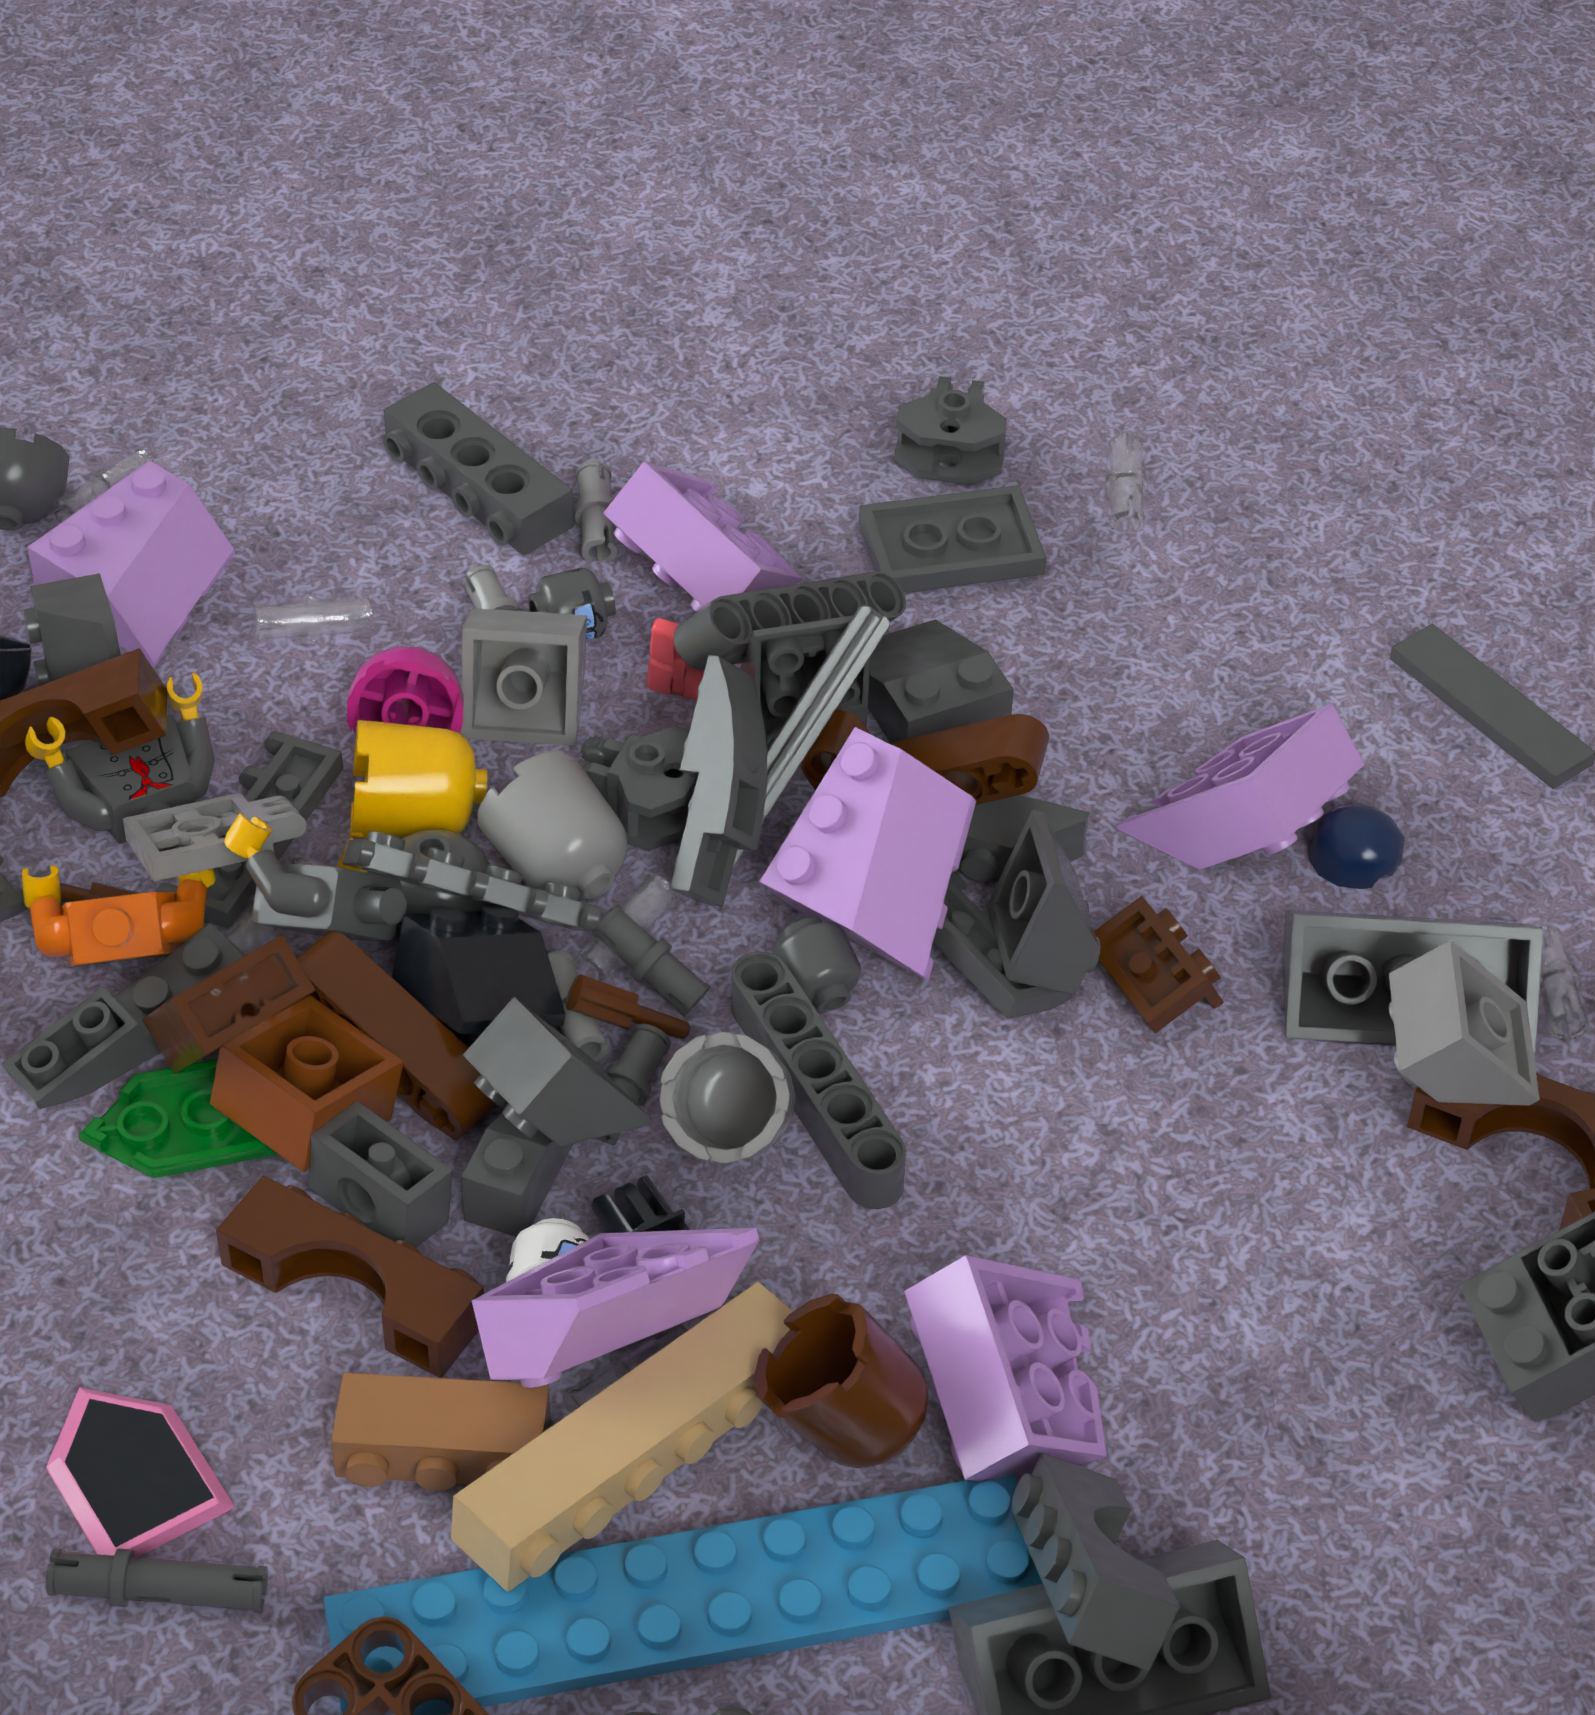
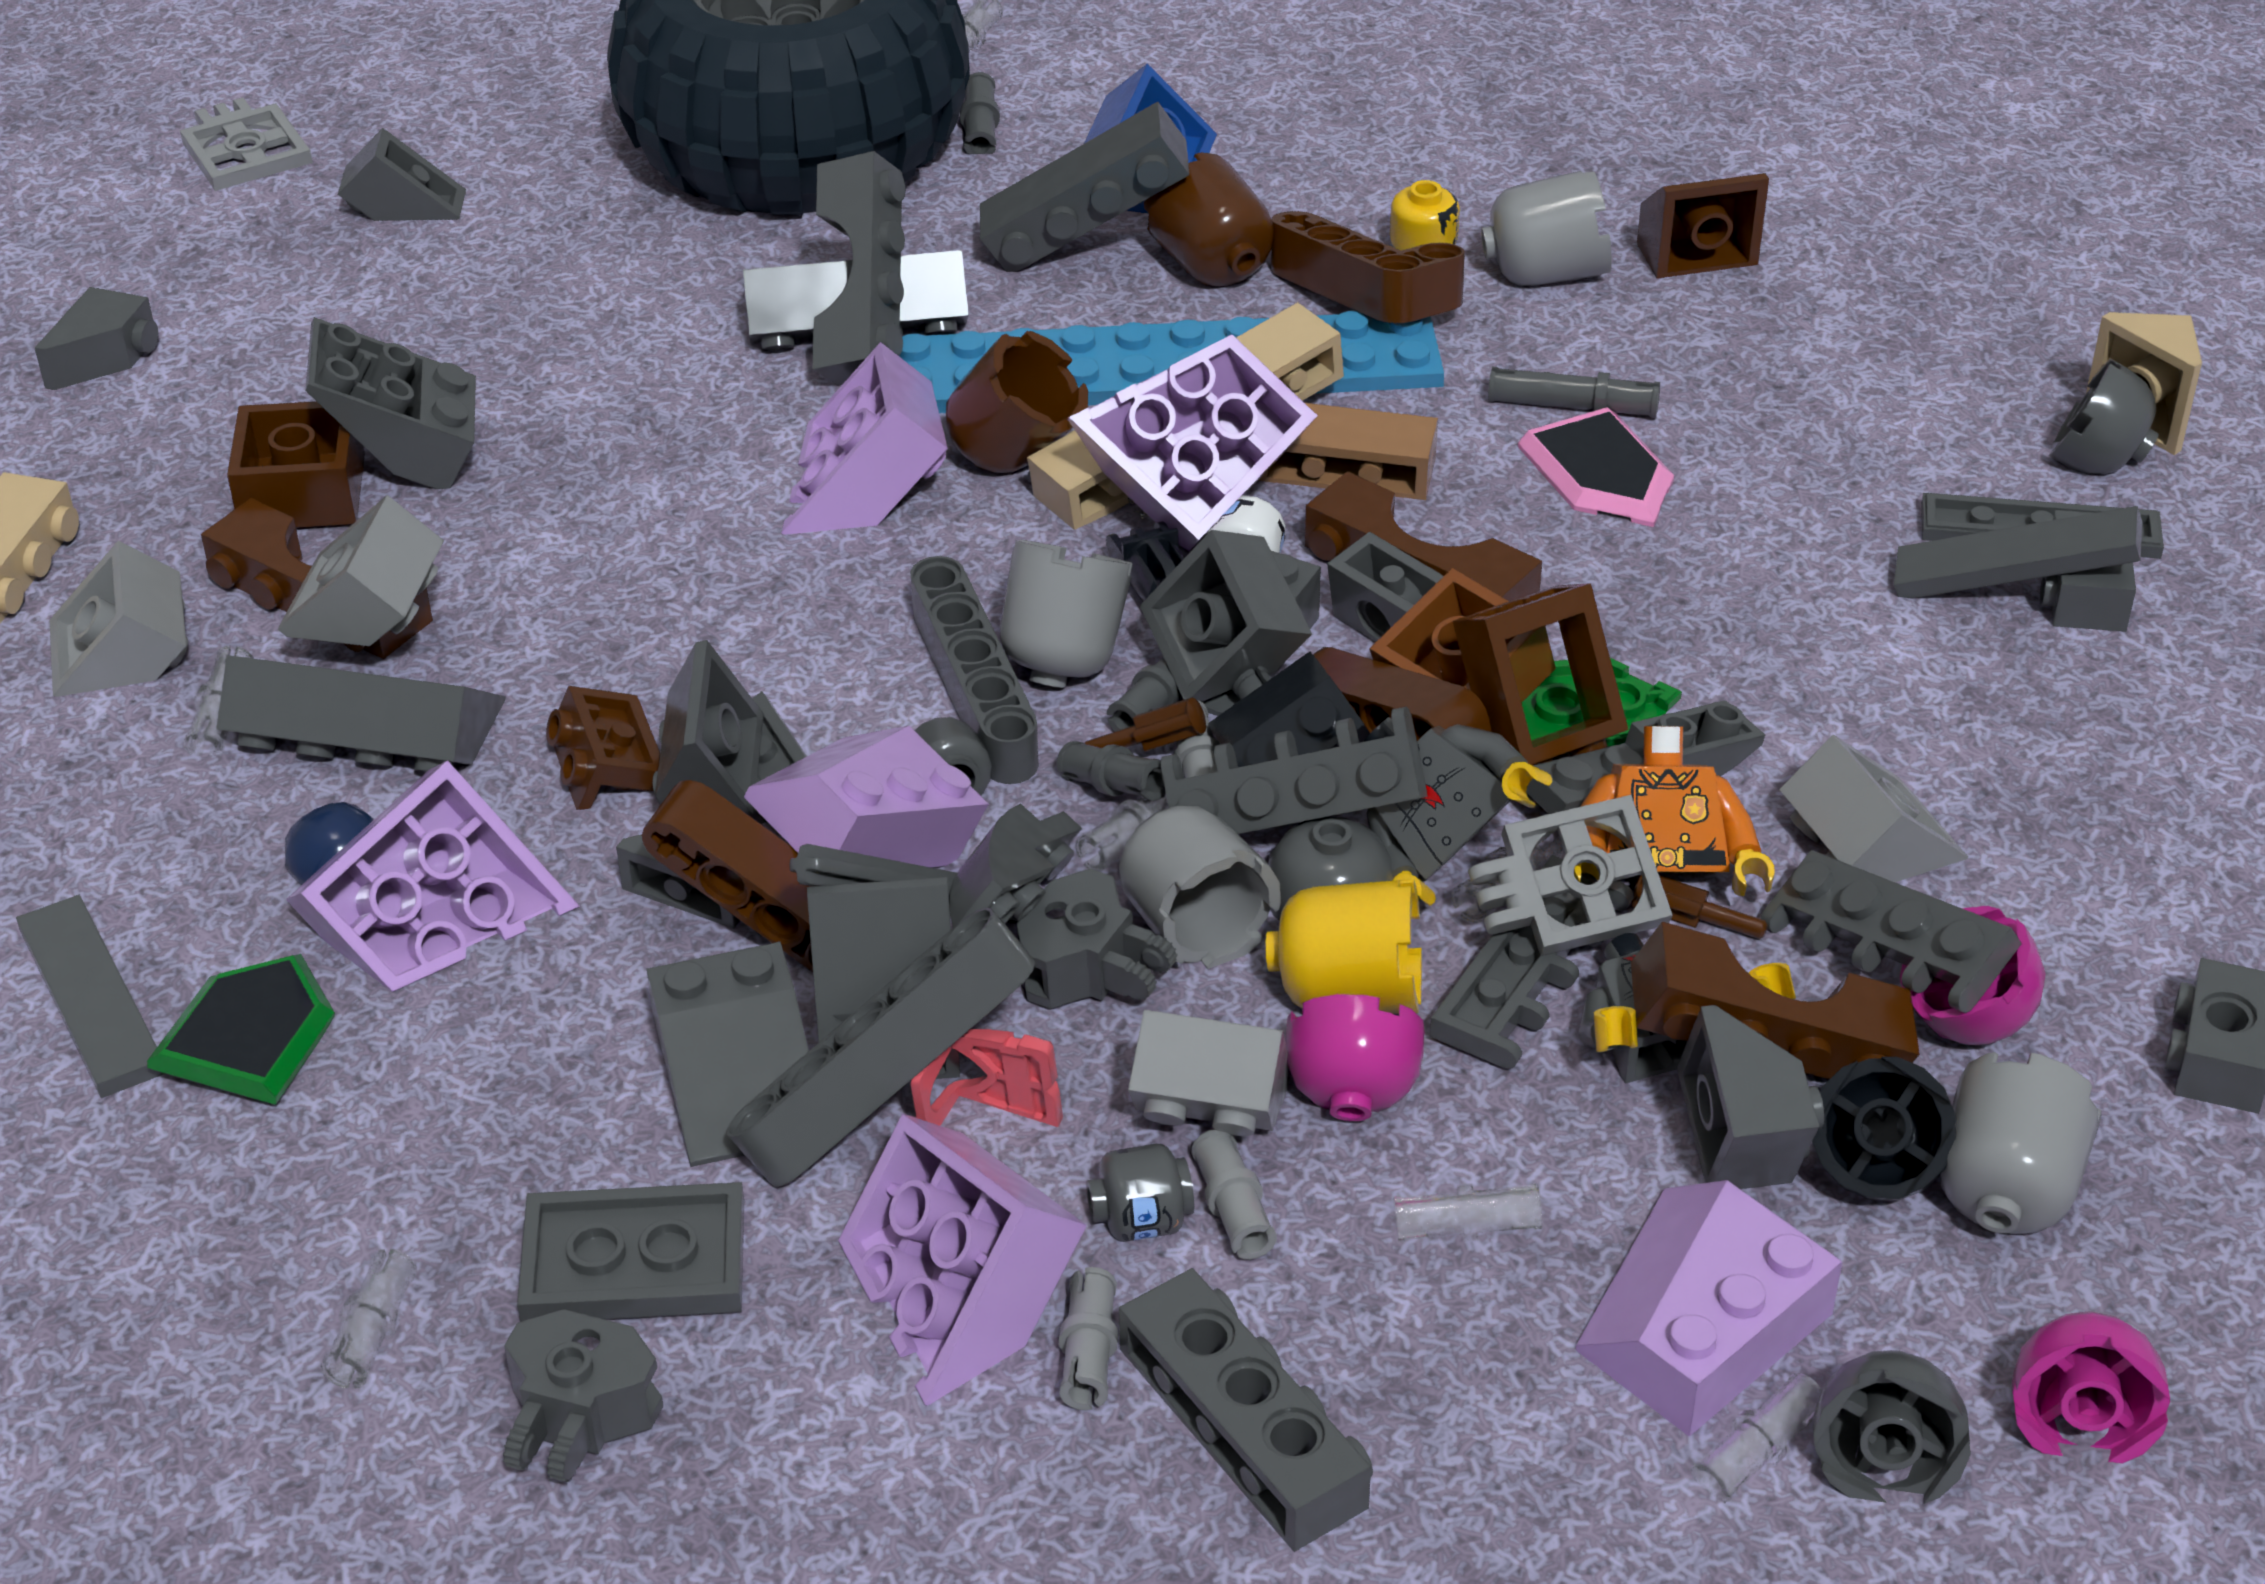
camera: 170 degrees left, 5 degrees down
(1342, 665) = (248, 1030): none -> tile

